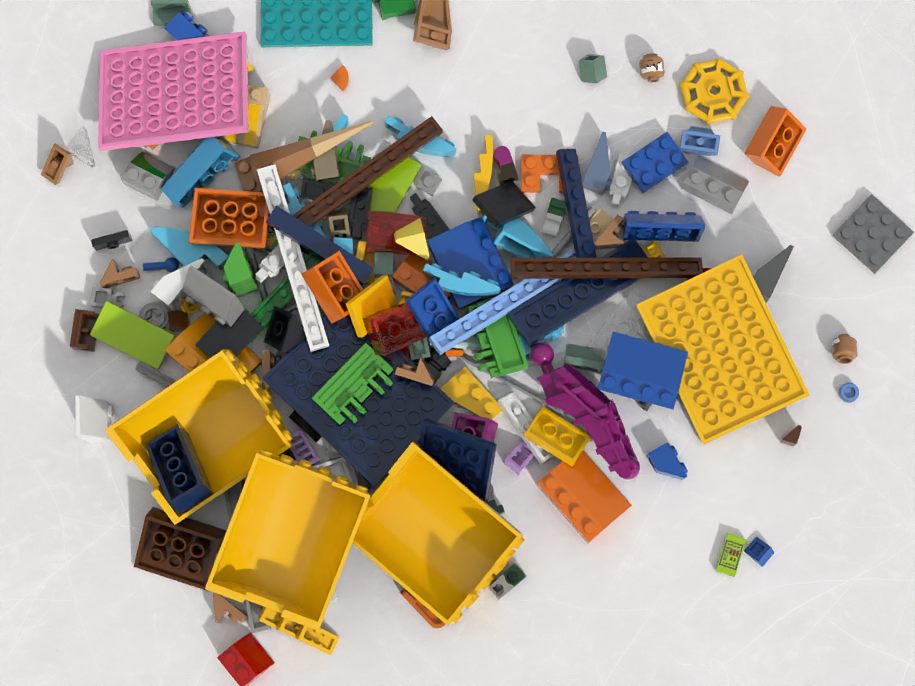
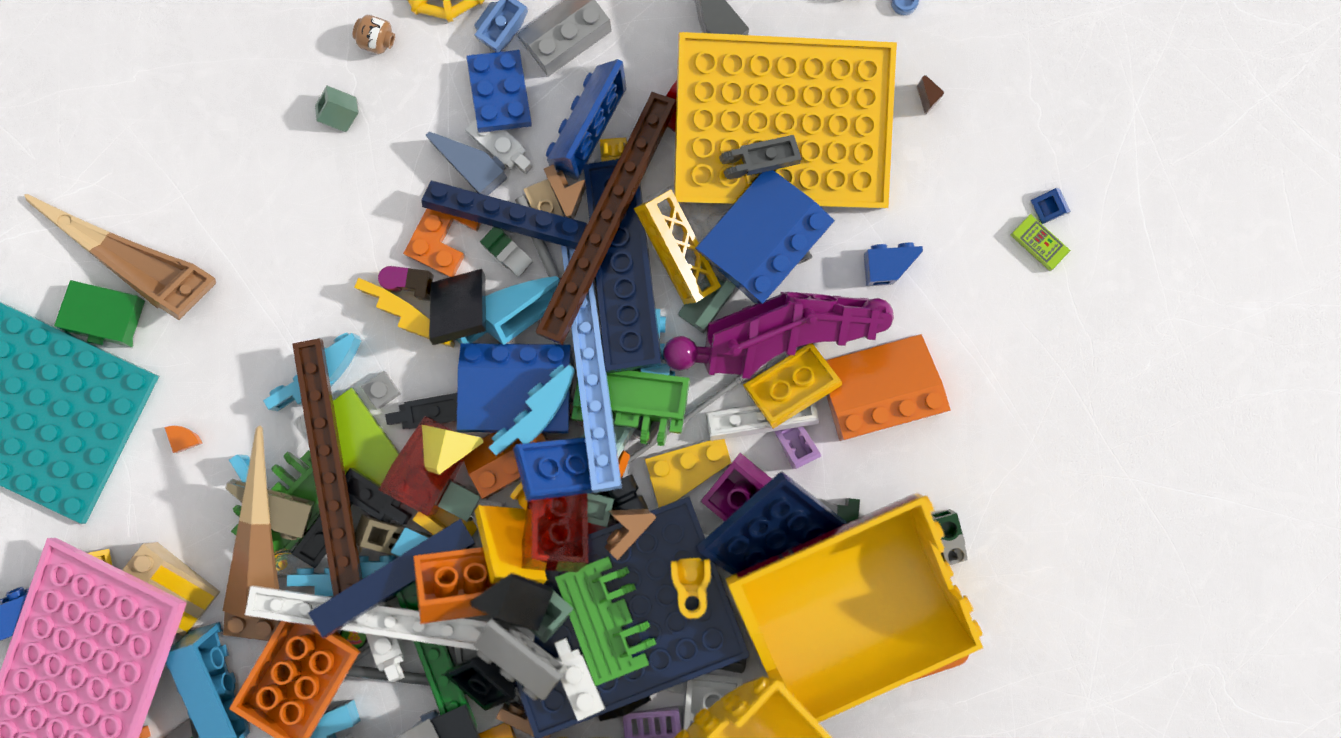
camera: 65 degrees left, 5 degrees up
(238, 272) = (373, 703): bright green slope -> none
(308, 342) = (519, 658): none -> light grey slope
(309, 386) = (578, 682): none -> white hinge
(340, 350) = (554, 617): none -> sand green panel
(342, 323) = (516, 601): none -> black slope
(403, 423) = (691, 579): none -> yellow piece
(603, 316) = (669, 251): none -> yellow fence
(691, 344) = (762, 157): none -> dark grey hinge

